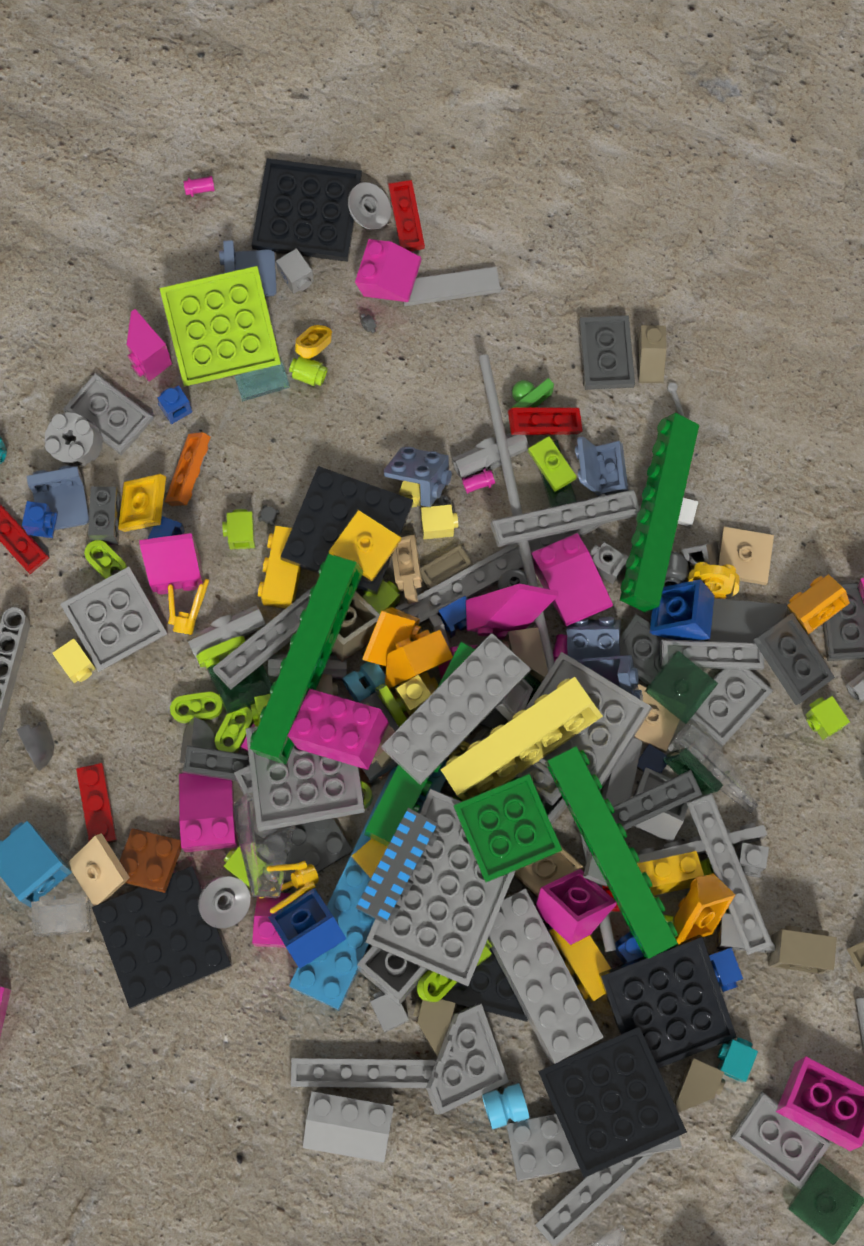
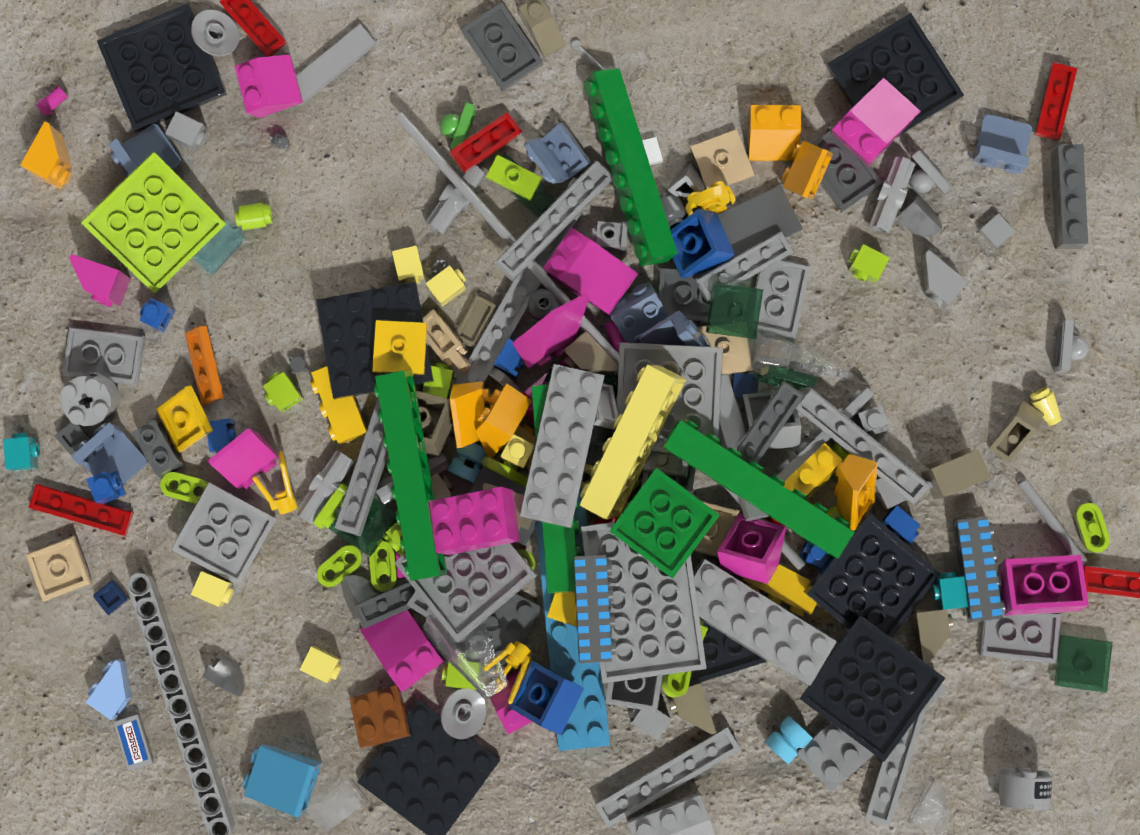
camera: 25 degrees left, 10 degrees up
(38, 461) = (71, 437): none -> dark grey plate
(96, 802) = (307, 696): red plate -> none
(98, 870) = (344, 750): tan plate -> none
(126, 783) = (321, 665): none -> light yellow brick
(166, 225) = (48, 157): none -> light orange slope
(313, 341) = (242, 187): yellow plate -> none
(421, 467) = (406, 249): sand blue bracket -> none
(466, 1063) = (737, 725): light grey plate -> none
(478, 481) = (459, 228): dark pink pin -> none
(775, 1049) = (977, 564): none -> dark grey brick
(793, 658) = (813, 230): dark grey plate -> none
(805, 555) = (773, 132): none -> light orange slope

